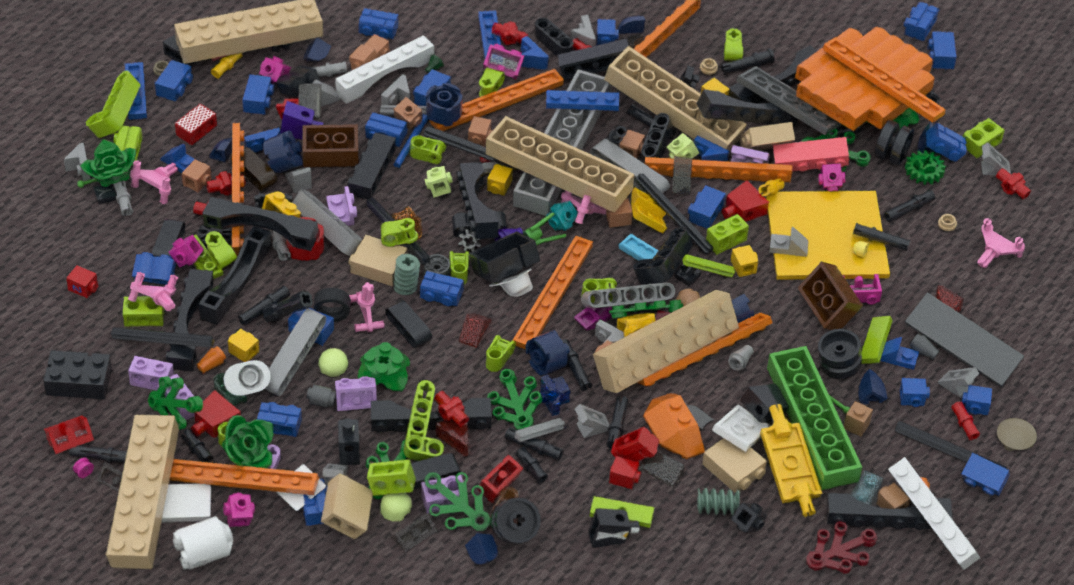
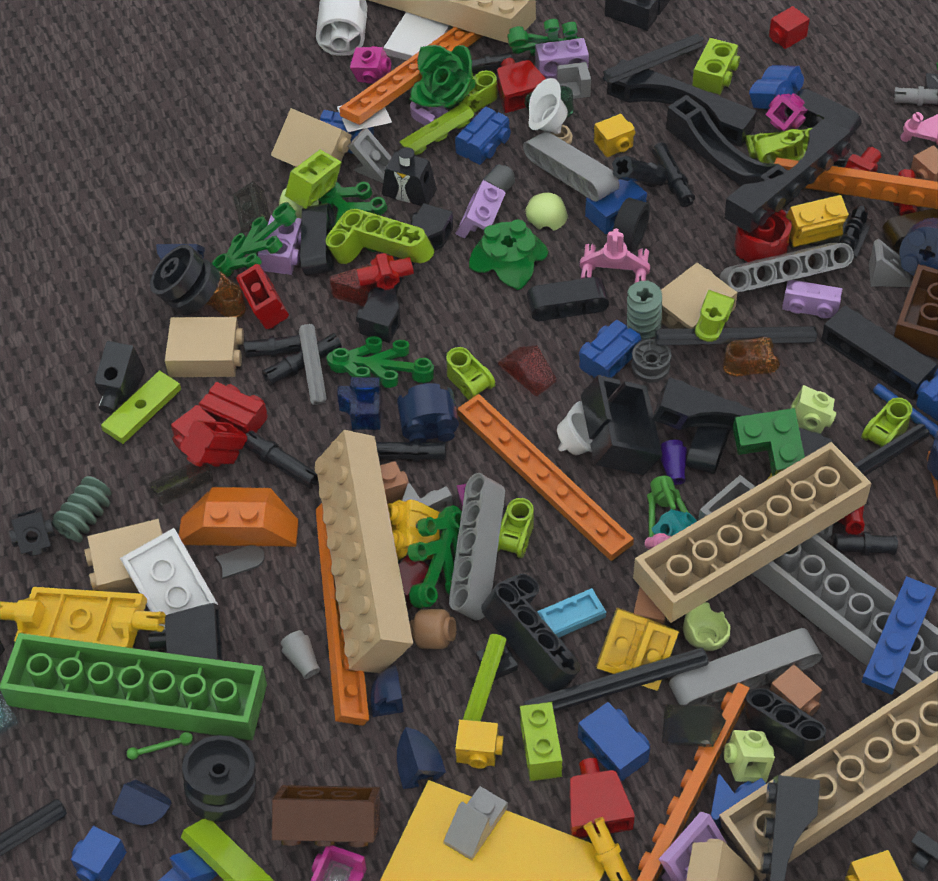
camera: 120 degrees right, 5 degrees up
(146, 372) = (611, 45): lavender brick -> none
(160, 295) = (722, 66): bright pink axle -> none
(195, 383) = (575, 77): none -> light grey panel
(212, 359) = (608, 104): orange cone -> none
(299, 451) = (438, 129): none -> lime tile
(459, 265) = (641, 375): lime piece -> none
(479, 130) = (902, 500): nougat brick -> none
(488, 174) = (770, 432): none -> green brick
(556, 498) = (203, 347): none -> tan brick
(591, 421) = (295, 426): light grey slope -> none
(597, 459) = (234, 407): none -> red brick
(617, 135) = (811, 663): black pin -> none
(770, 283) = (417, 758): none -> dark blue brick
(858, 418) = (98, 748): medium nougat brick -> none

